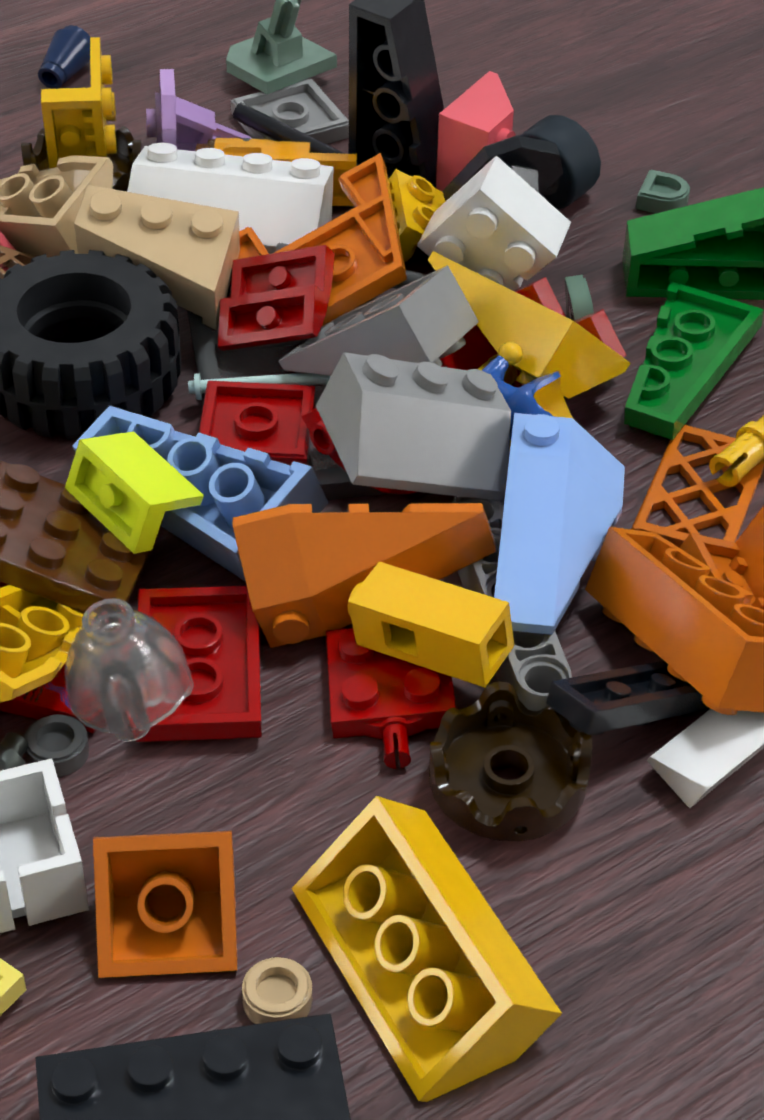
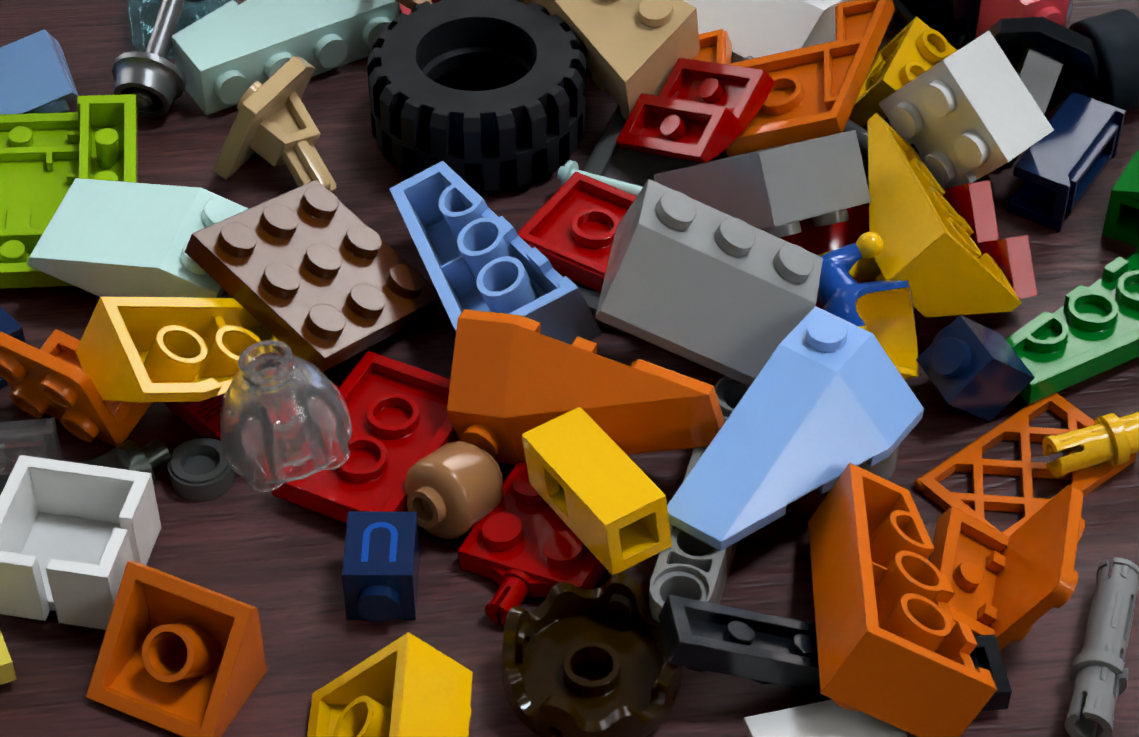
camera: 30 degrees right, 0 degrees up
(128, 487) = (406, 239): neon yellow panel -> none
(281, 759) = (381, 566): none -> dark blue brick
(298, 670) = (453, 489): none -> medium nougat head
(577, 297) = (1027, 218): sand green tile -> none
(580, 246) = (1066, 160): none -> dark blue window
(627, 424) = (974, 368): none -> dark blue brick

